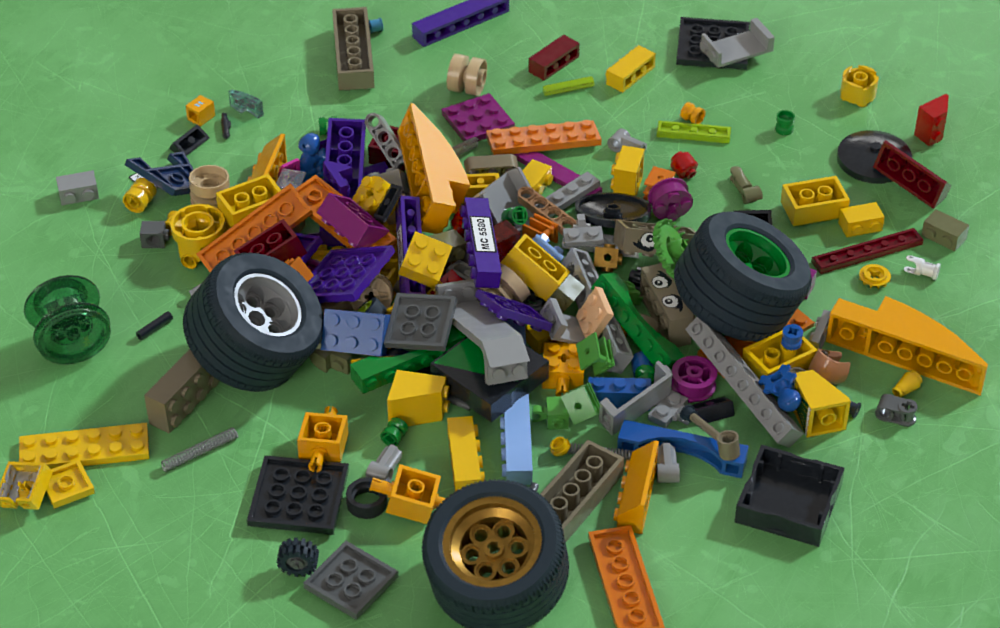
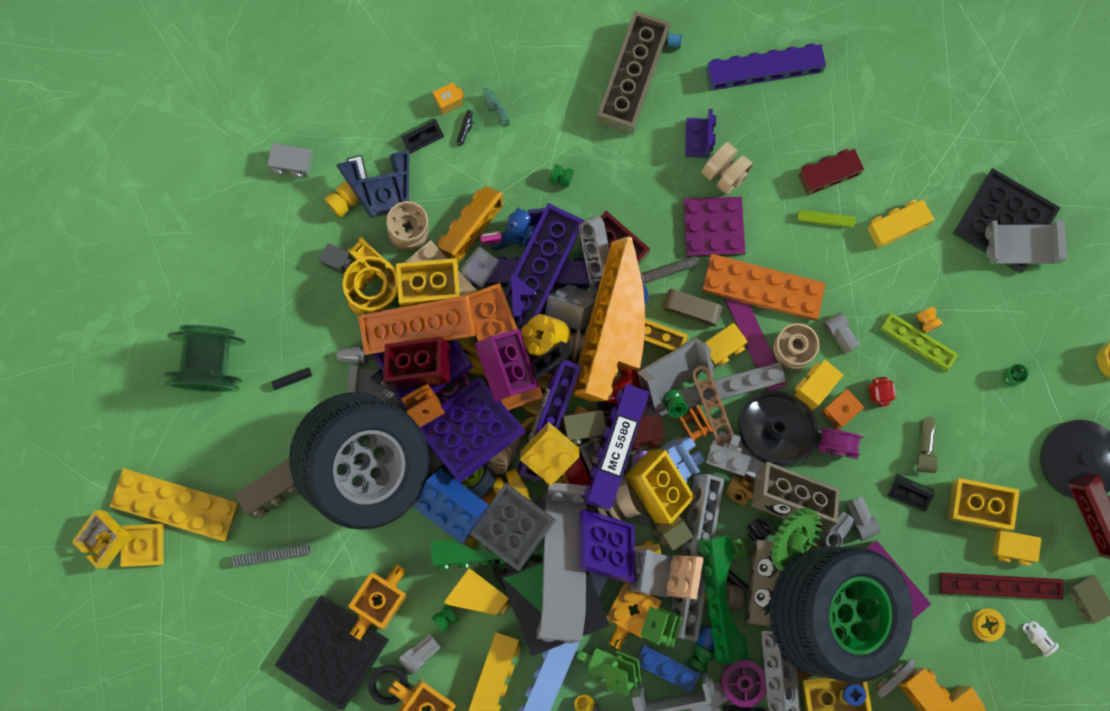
camera: 25 degrees right, 35 degrees up
(433, 71) = (699, 136): none -> dark purple bracket
(595, 155) = (795, 346): none -> tan wheel

